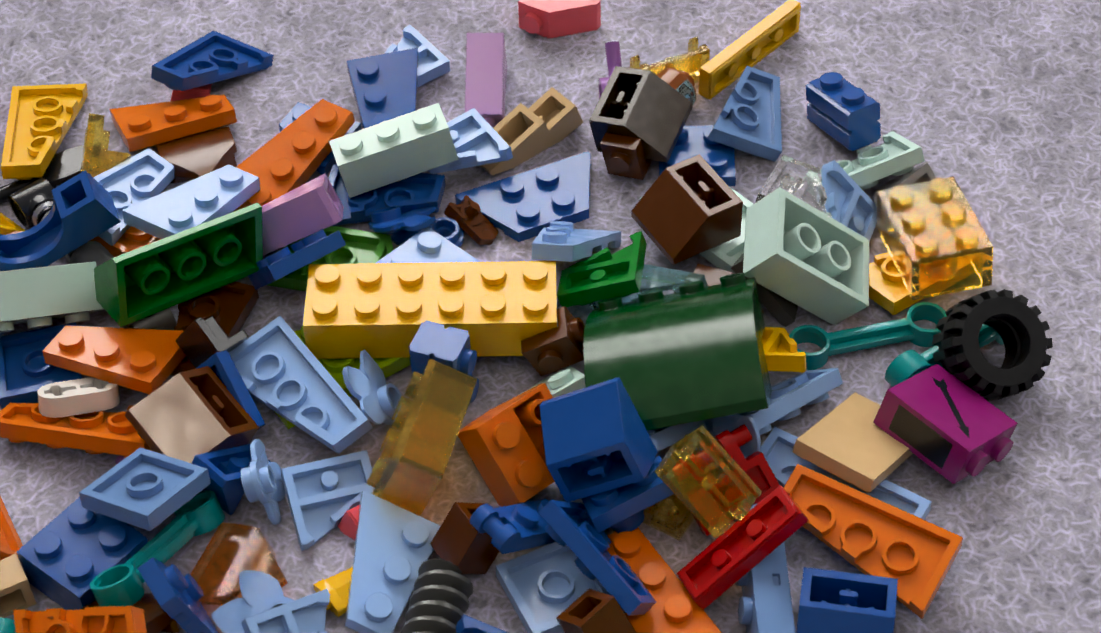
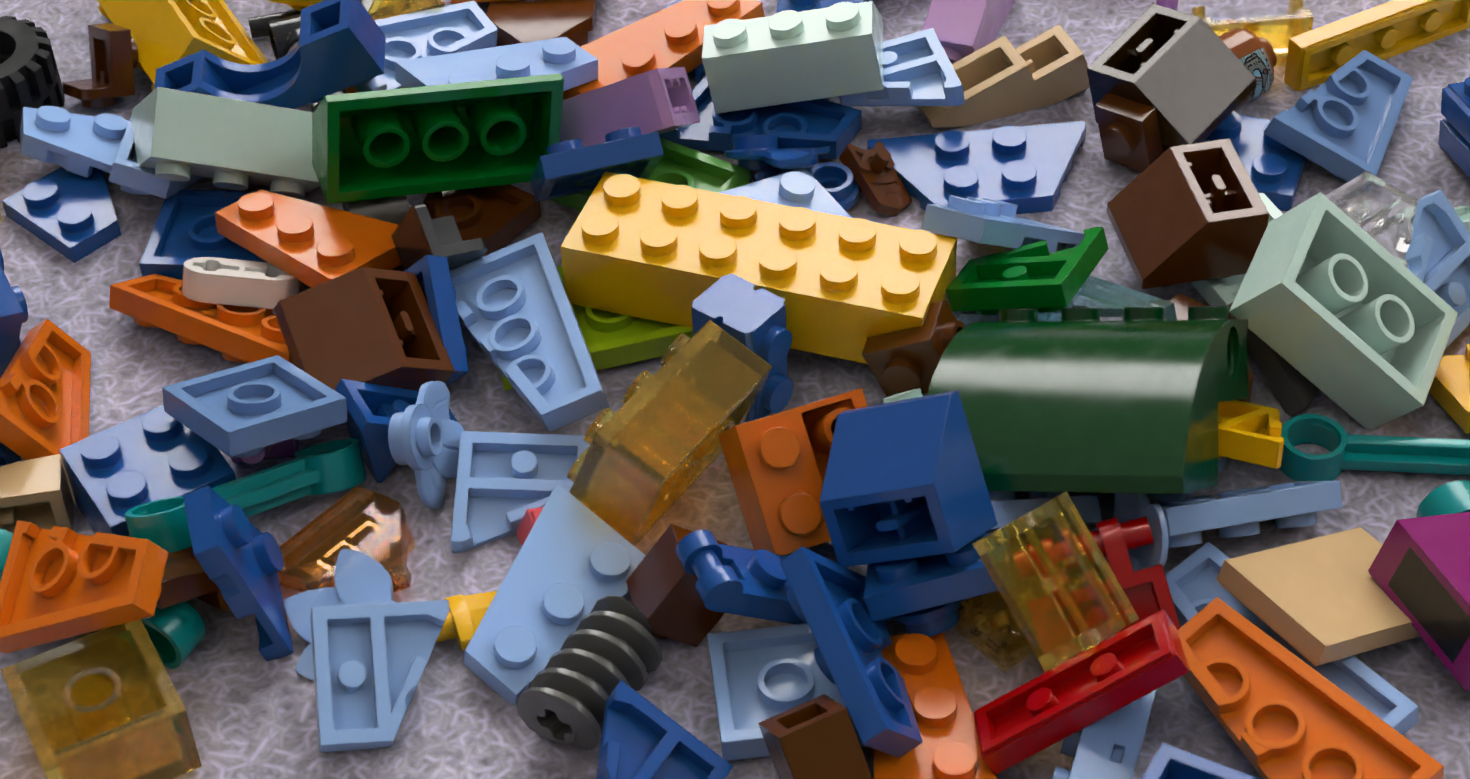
camera: 20 degrees right, 5 degrees down
(370, 388) = (625, 349): light blue plate -> none

